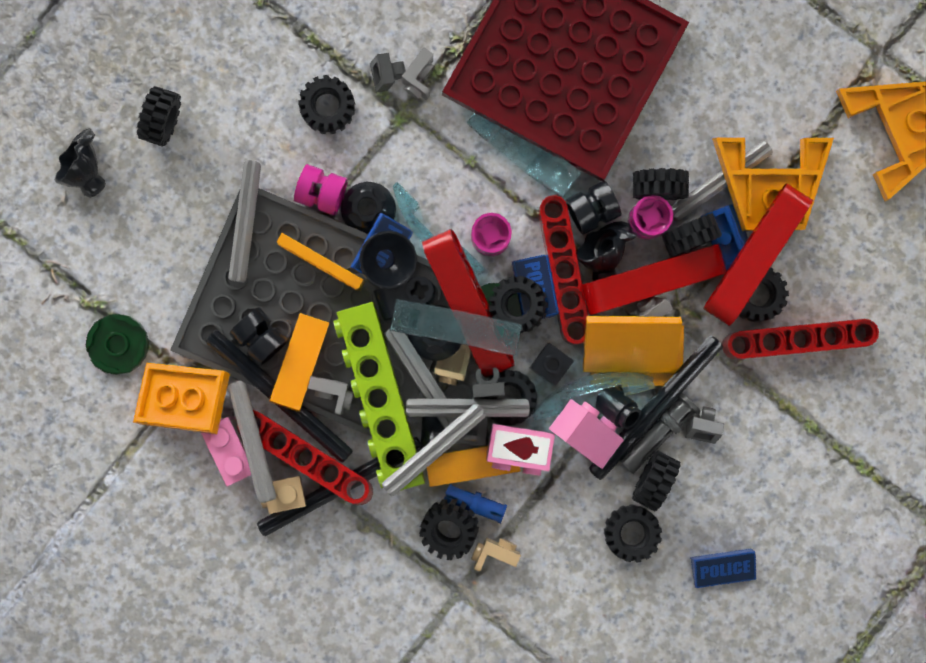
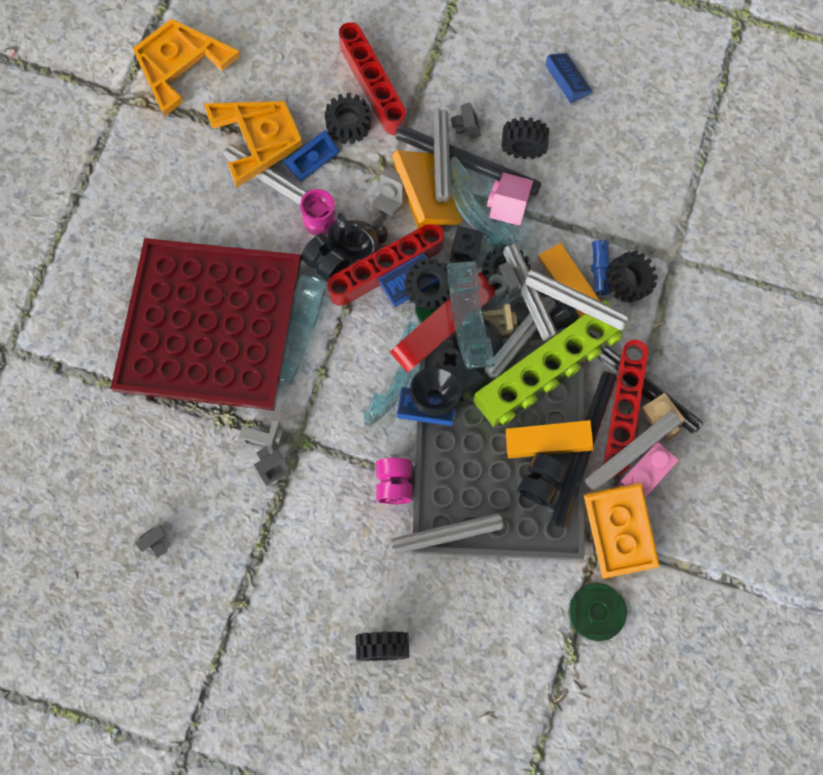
camera: 110 degrees left, 15 degrees down
(80, 166) = (452, 707): black hair -> none
(314, 91) = (311, 489): black tyre -> none
(320, 262) = (457, 453): light orange tile -> none
(328, 388) = (560, 409): light grey bracket -> none
(349, 206) = (383, 449): black piece -> none
(491, 234) = (382, 322): dark pink wheel -> none
(502, 550) = (630, 235): tan bracket -> none
(520, 448) = (543, 243): brick -> none
(618, 408) = (481, 184): black brick -> none
(651, 533) = (575, 133): black tyre -> none
(654, 279) = (368, 192): red beam -> none
(661, 182) = (288, 211): black tyre -> none
(665, 375) = (441, 155): none -> light grey axle
(668, 423) = (476, 147): dark grey pin -> none
(691, 235) = (321, 174): black tyre -> none
(758, 254) = (319, 121): red beam -> none

